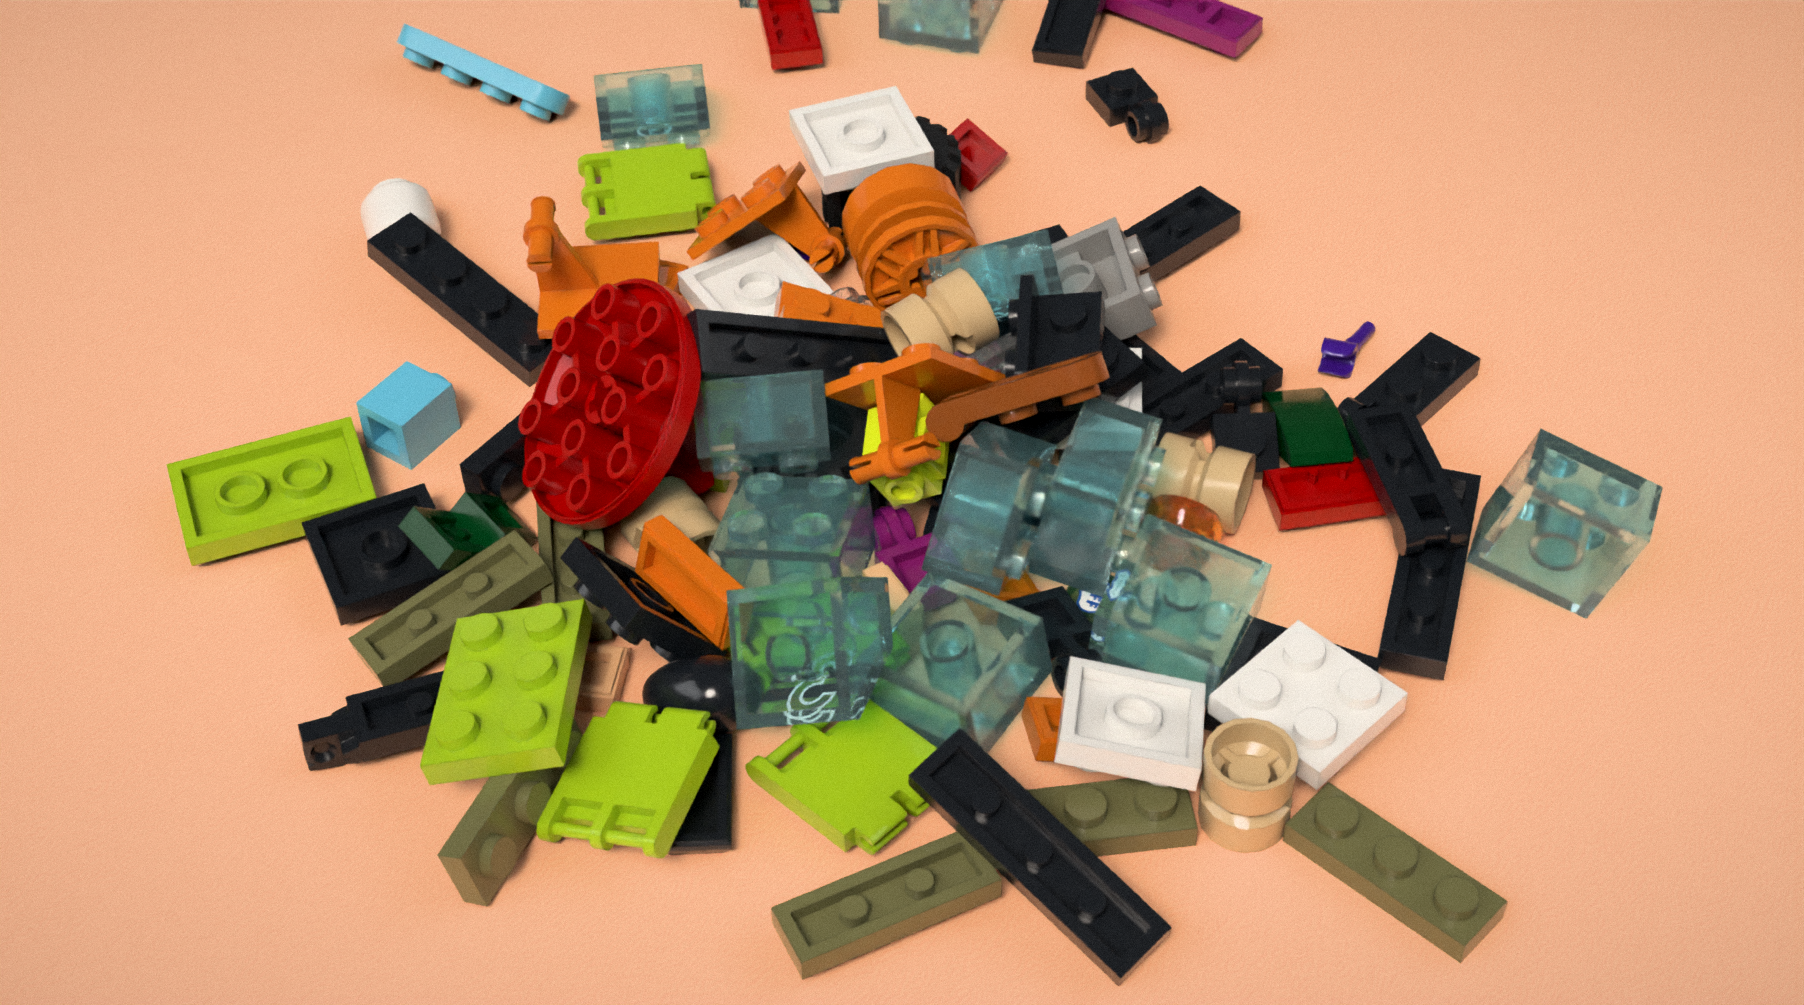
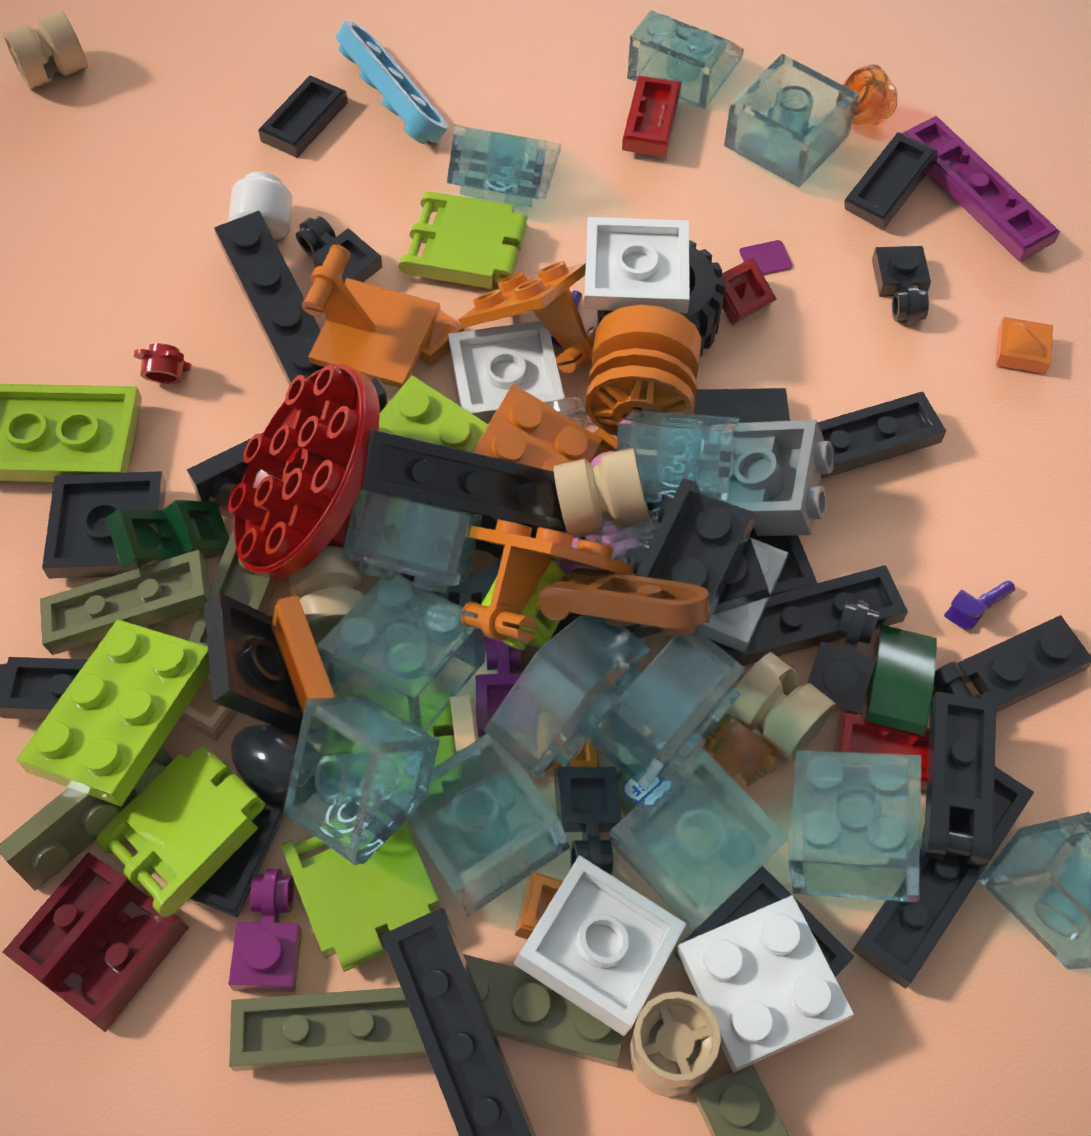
camera: 20 degrees right, 15 degrees up
(57, 139) = (45, 50): none -> tan wheel
(356, 384) = (162, 363): none -> red plate
(394, 130) = (303, 116): none -> black tile
(409, 415) = (184, 398): medium azure brick -> none
(481, 232) = (318, 236): none -> black plate
(585, 921) = (95, 941): none -> dark red slope
(774, 865) = (267, 951): none -> magenta plate
(981, 117) = (768, 256): none -> magenta sticker
(1277, 125) = (1024, 345): none -> orange tile
(1331, 545) = (856, 825): none -> clear light blue brick

